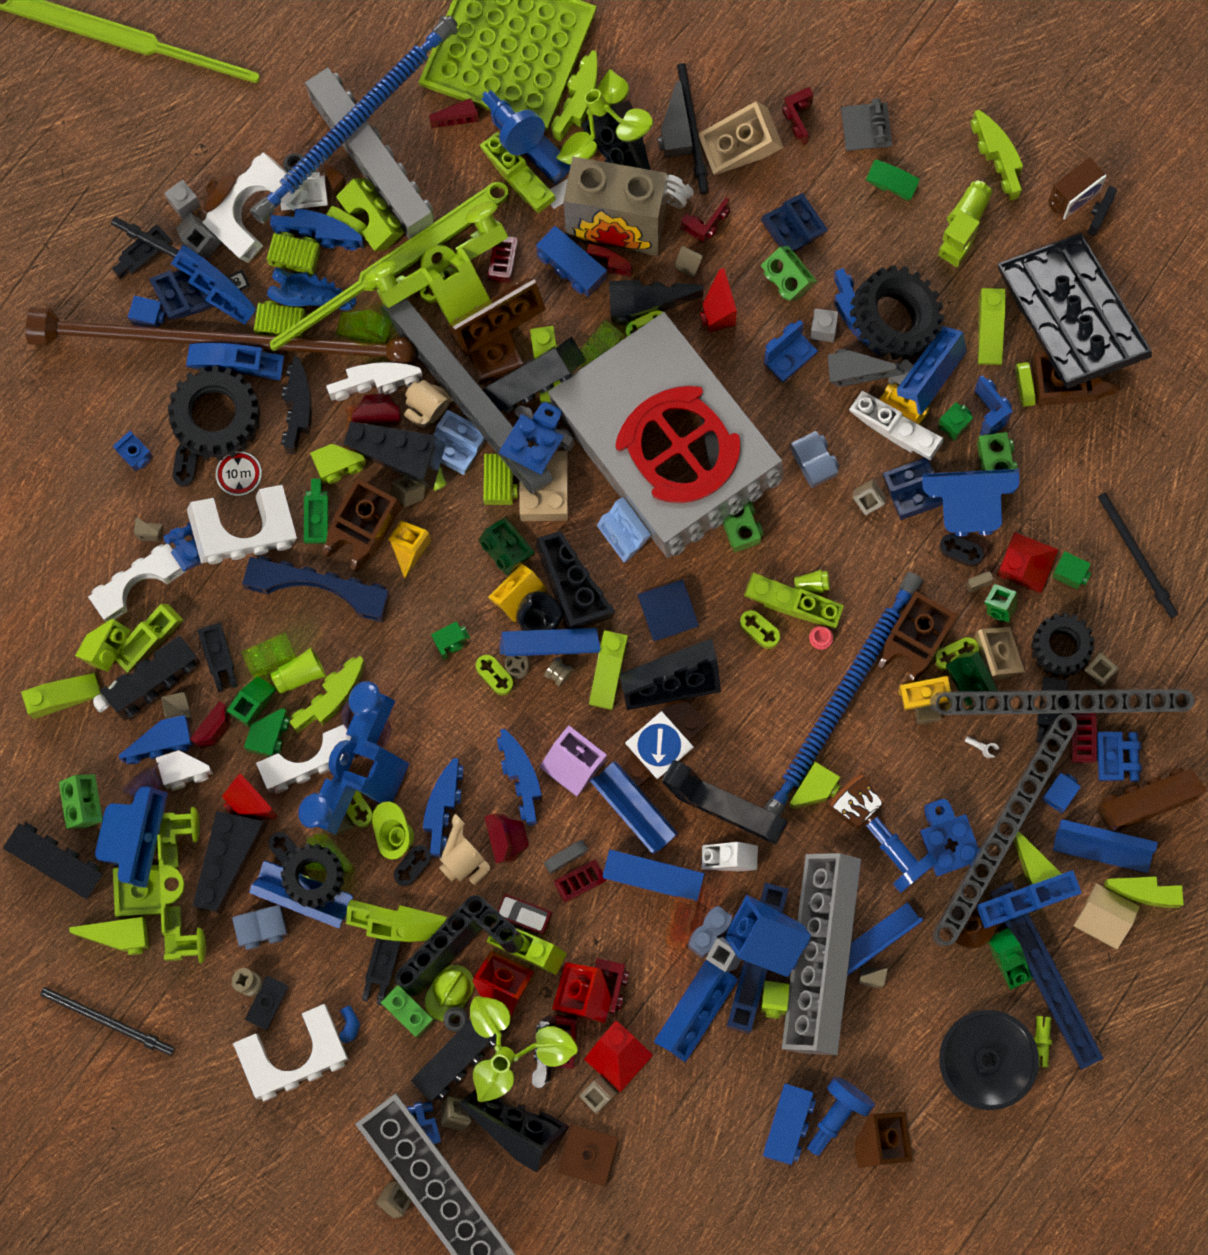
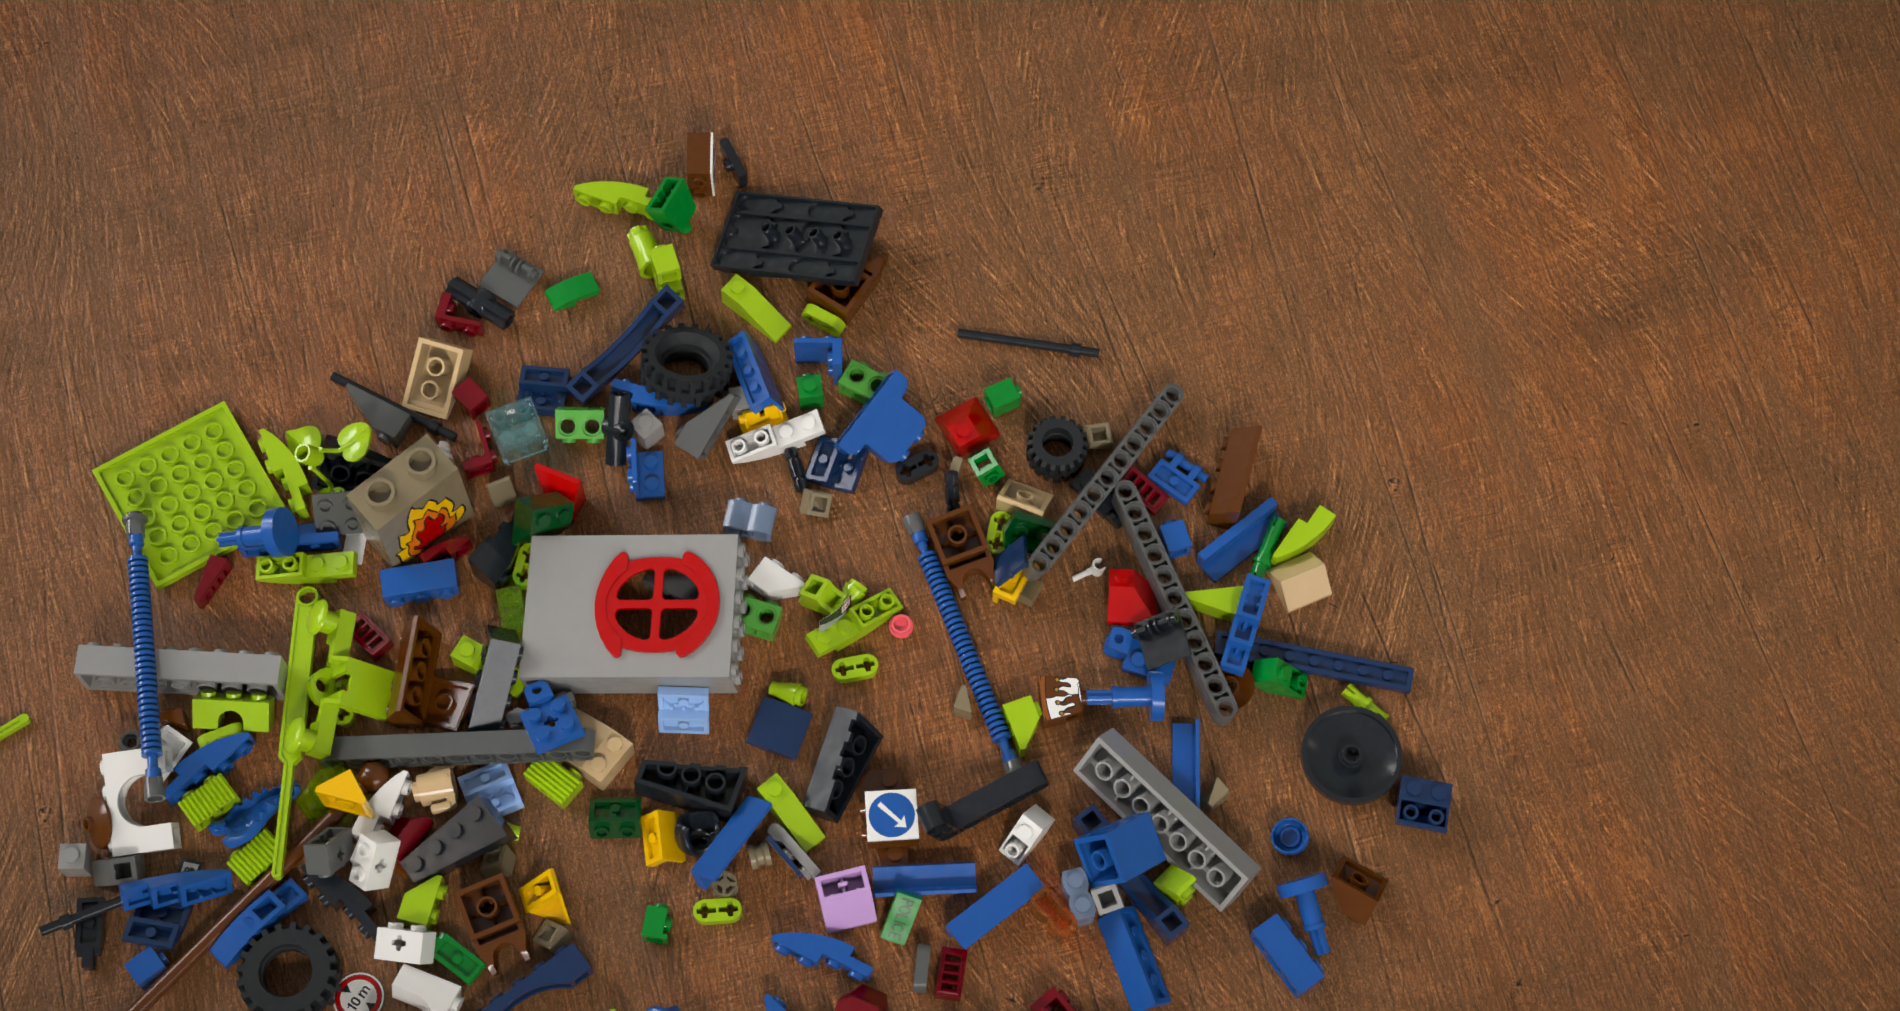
camera: 60 degrees left, 10 degrees down
(296, 474) = (392, 947): none -> white brick
(318, 365) = (328, 851): none -> dark grey brick
(338, 403) = (374, 860): none -> white brick
(368, 343) = (345, 795): none -> yellow slope
(385, 572) = (552, 936): none -> dark tan slope
(569, 691) = (784, 857): none -> dark blue piece
(571, 146) = (334, 513): none -> dark grey hinge
(581, 696) = (794, 851): none -> light grey hinge
(591, 811) = (901, 917): none -> tile
(686, 305) = (541, 516): none -> dark green slope
(701, 597) = (790, 693): none -> lime cone
(743, 178) = (472, 398): none -> dark red panel
(744, 232) = (517, 430): none -> clear light blue slope
(778, 516) = (774, 582): none -> white slope
(785, 583) = (835, 616): none -> sticker
(794, 562) = (821, 595): none -> lime brick
(794, 730) = (962, 704): none -> dark tan slope
(804, 302) = (617, 428): none -> black piece
(826, 121) = (480, 303): none -> black piece
(870, 256) = (613, 360): none -> dark blue arch
(884, 461) = (796, 469): none -> black axle
(884, 1059) = (1290, 836): none -> blue hair
(934, 680) = (1010, 561): none -> dark blue piece
(959, 592) = (951, 490): none -> black axle
(964, 843) = (1162, 638): none -> black hinge
(980, 795) = (1129, 598): none -> red slope
(991, 1145) = (1422, 804): none -> dark blue slope
(1021, 195) = (672, 206): none -> green torso
(1111, 871) = (1263, 559): none -> green pin

